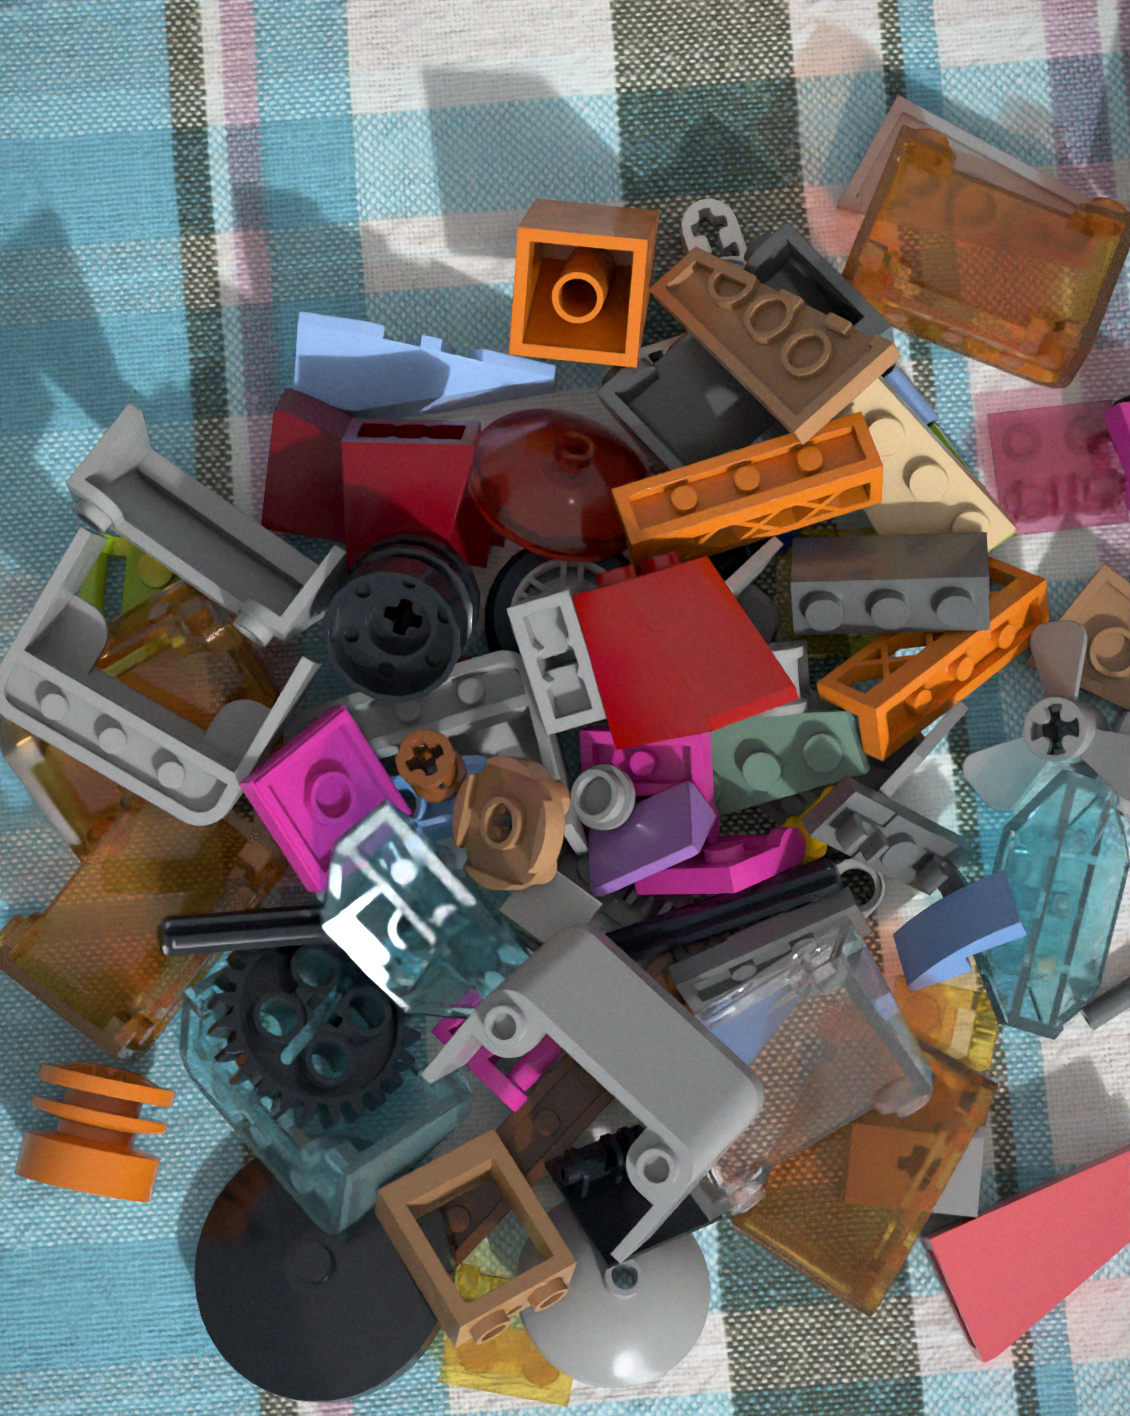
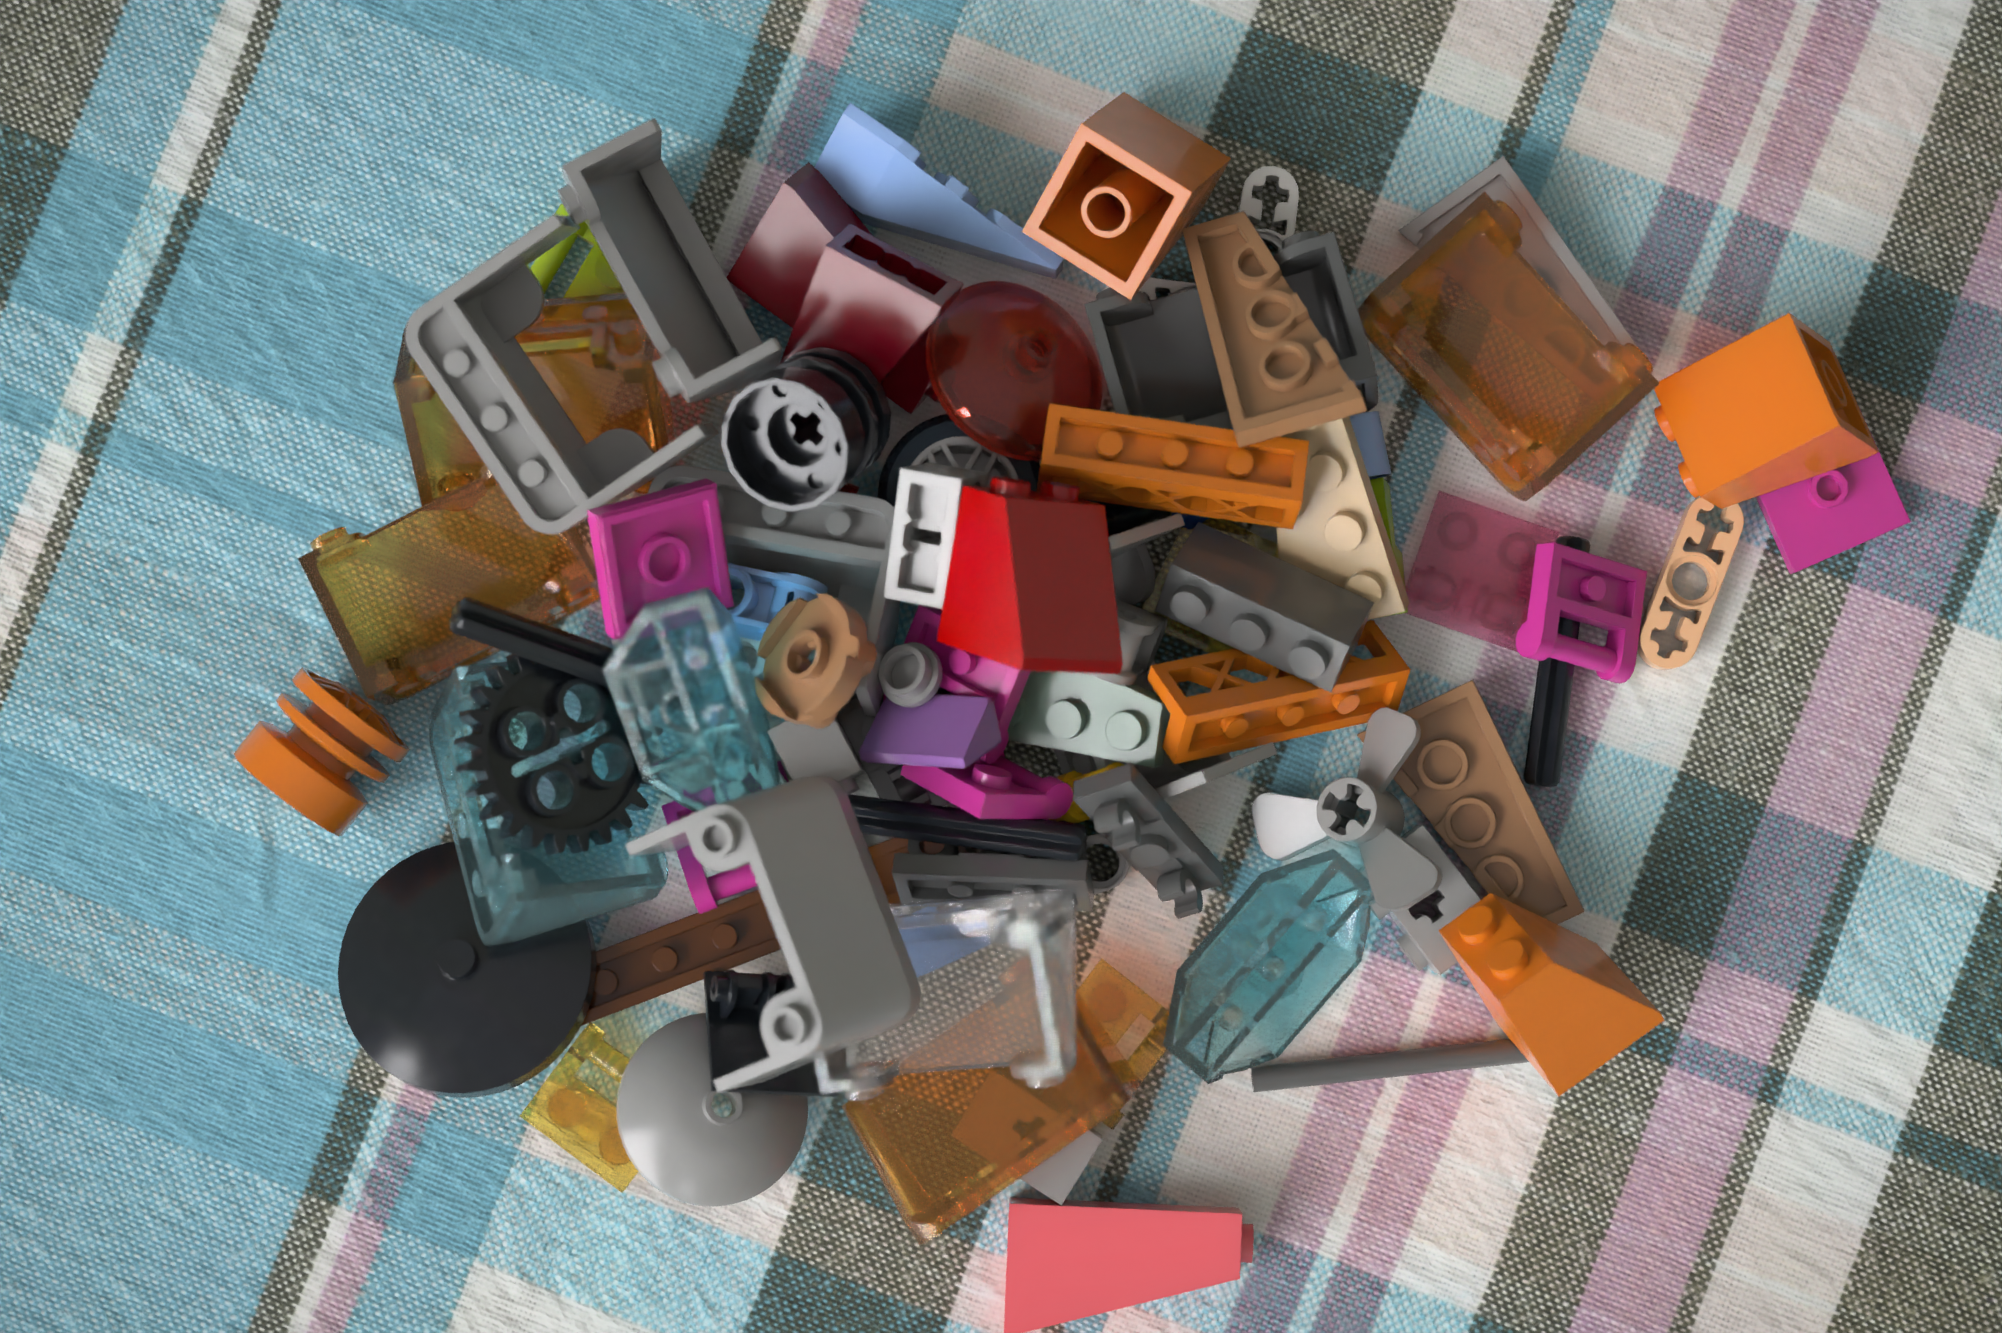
camera: 30 degrees right, 5 degrees up
(413, 769) = (754, 563): dark orange bush -> none
(444, 1180) = (607, 944): medium nougat window -> none
(966, 922) = (1175, 942): medium blue slope -> none

